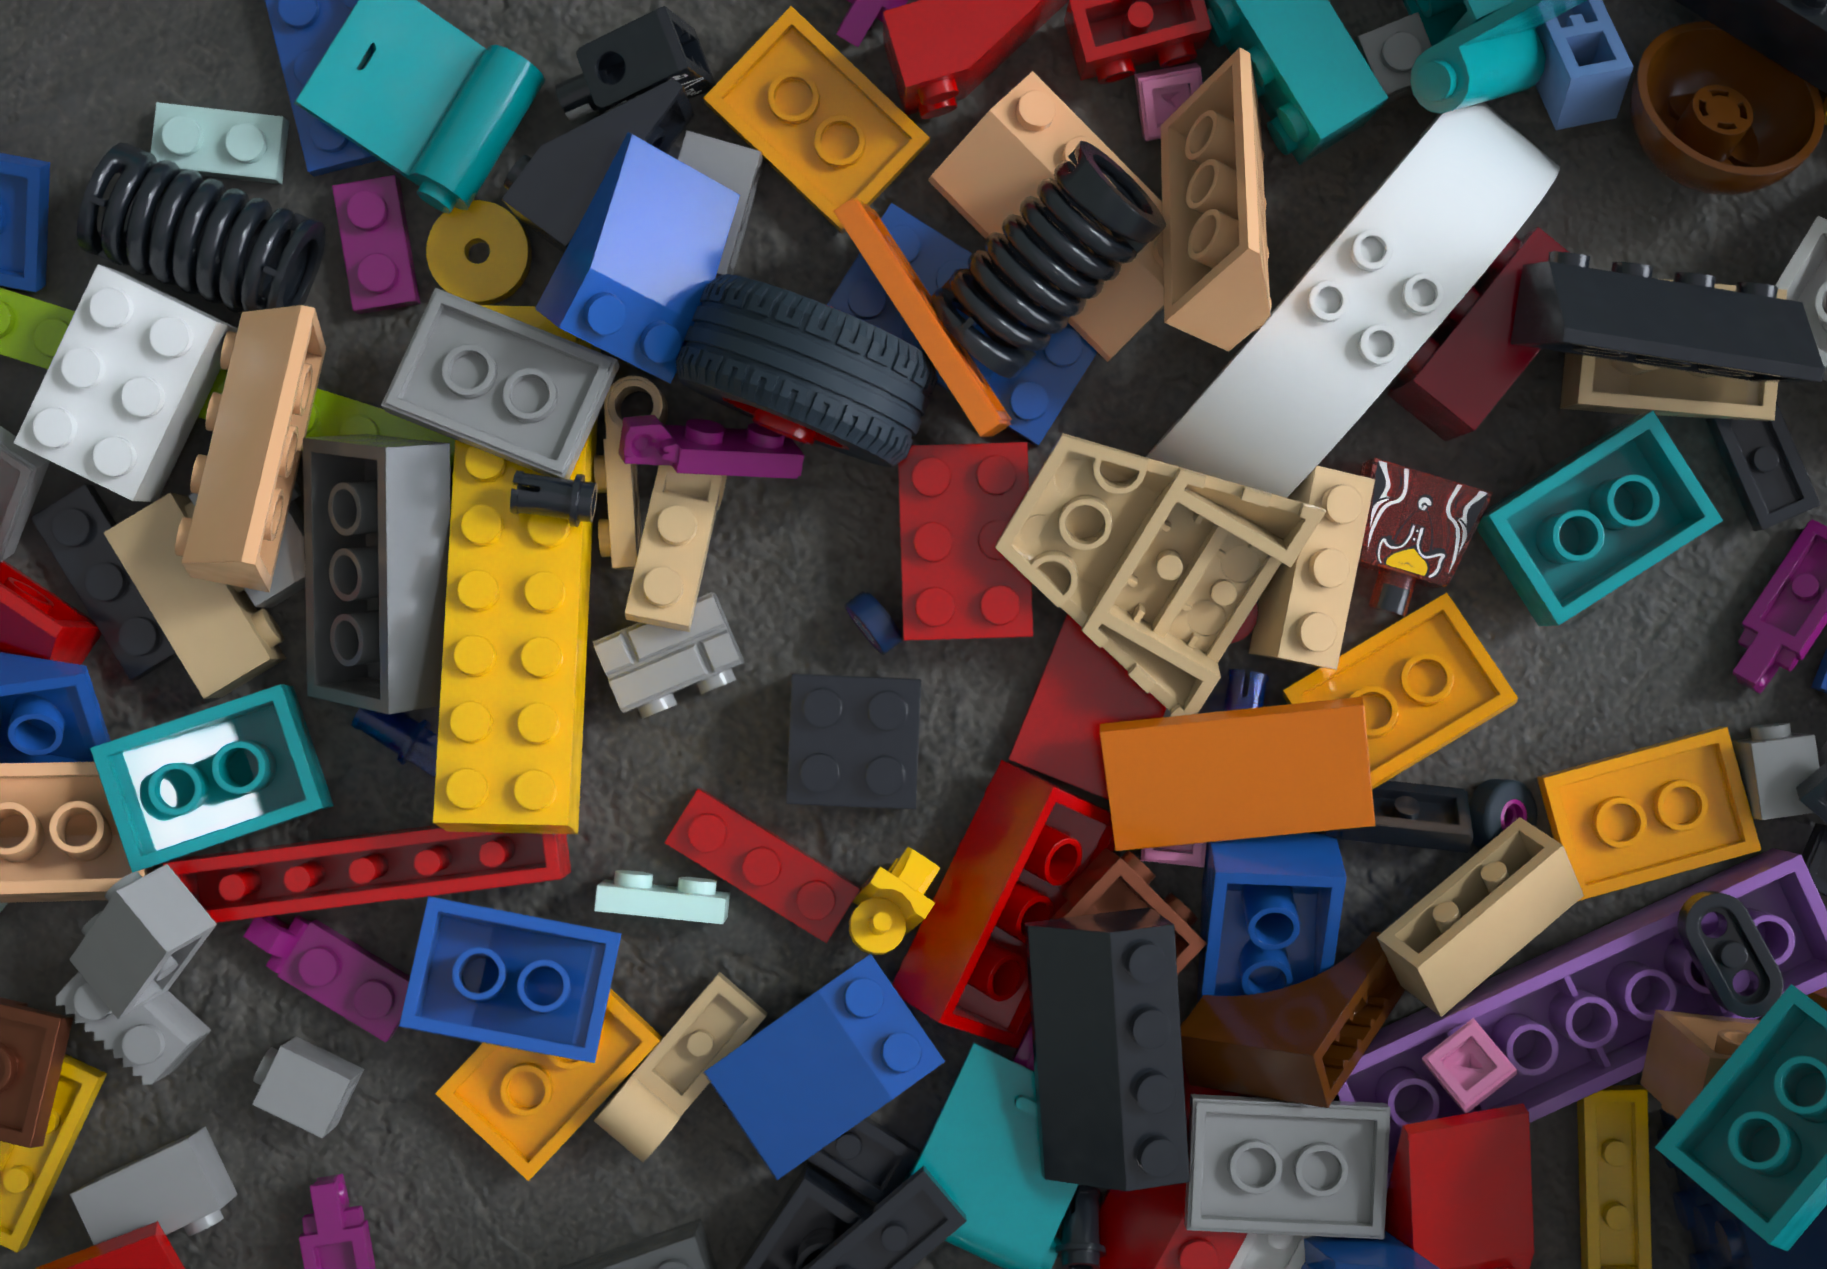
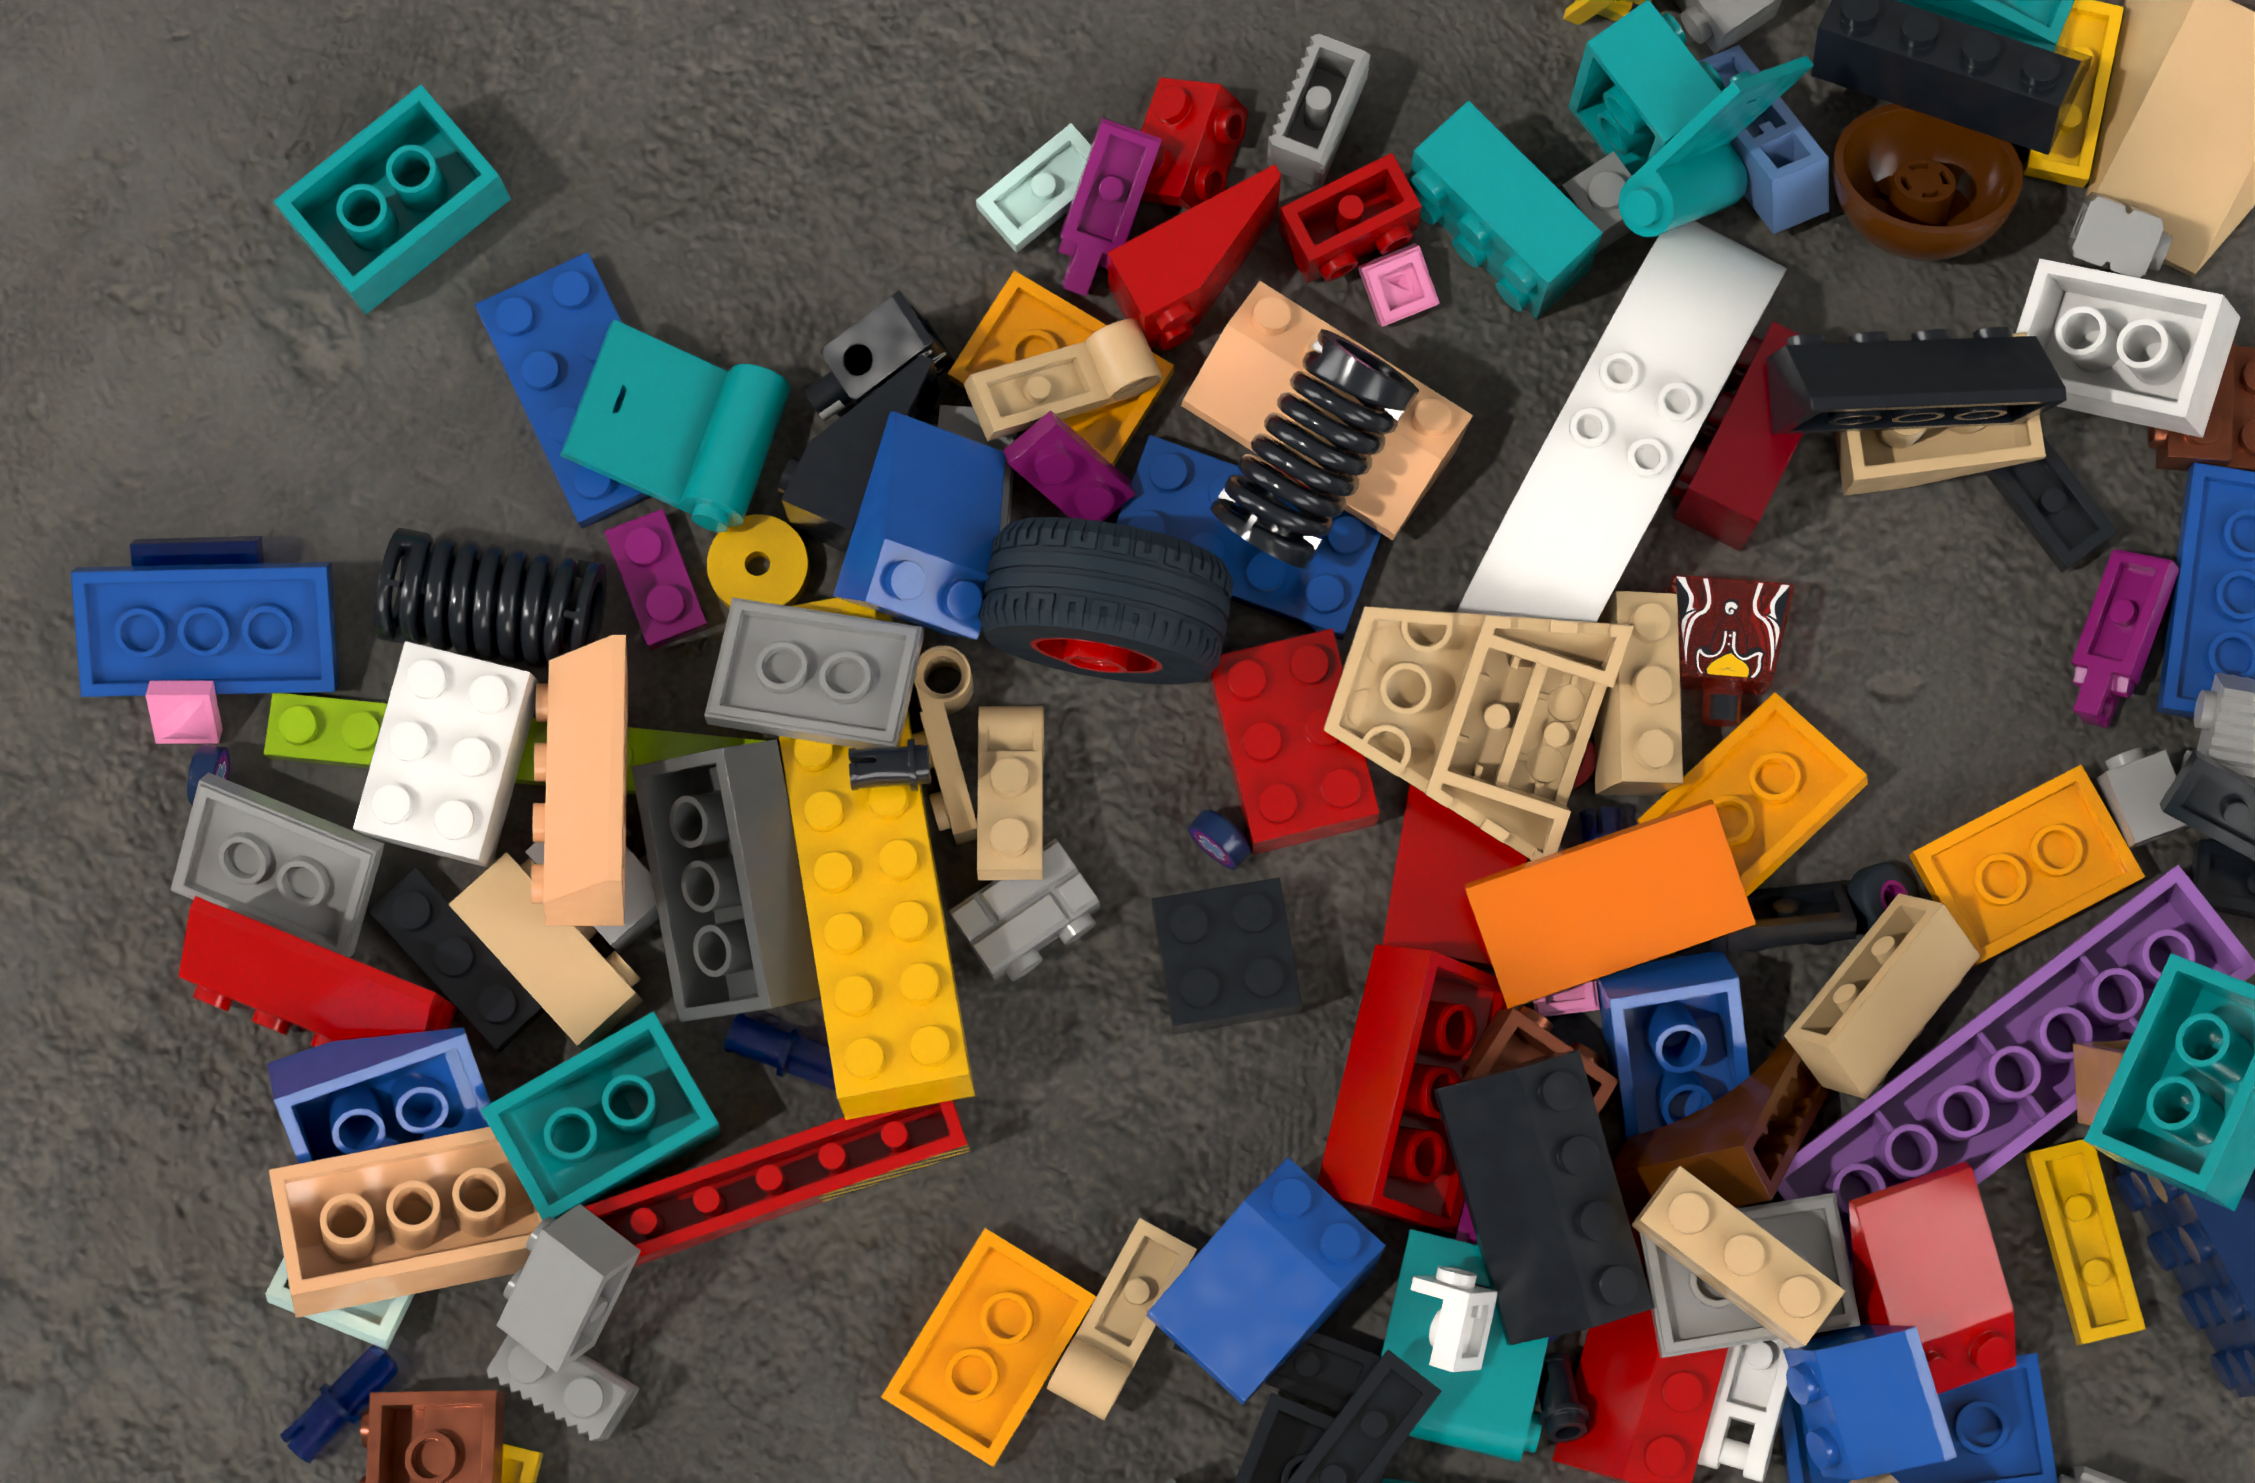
camera: 10 degrees left, 10 degrees down
(221, 142) = (488, 512): light aqua plate -> none
(305, 1085) = (748, 1417): light grey brick -> none
(334, 971) = (757, 1301): magenta hinge -> none
(510, 980) = (936, 1260): blue slope -> none
(636, 895) = (1097, 1150): light aqua plate -> none
(709, 448) = (1024, 700): magenta hinge -> none
(762, 865) = (1160, 1103): red plate -> none
(799, 225) = (1068, 470): none -> magenta plate
(814, 133) = (1068, 381): none -> tan plate
(892, 903) = (1299, 1102): yellow hips -> none
(916, 308) = (1208, 528): orange tile -> none
(1004, 1150) = (1463, 1322): none -> white bracket
(1216, 210) = (1463, 369): light nougat slope -> none
(1281, 1162) = (1738, 1258): none -> tan brick
(1469, 1066) = (1902, 1135): bright pink tile -> none
(1597, 520) = (1901, 590): teal brick -> none
(1728, 950) = (2134, 964): black plate -> none

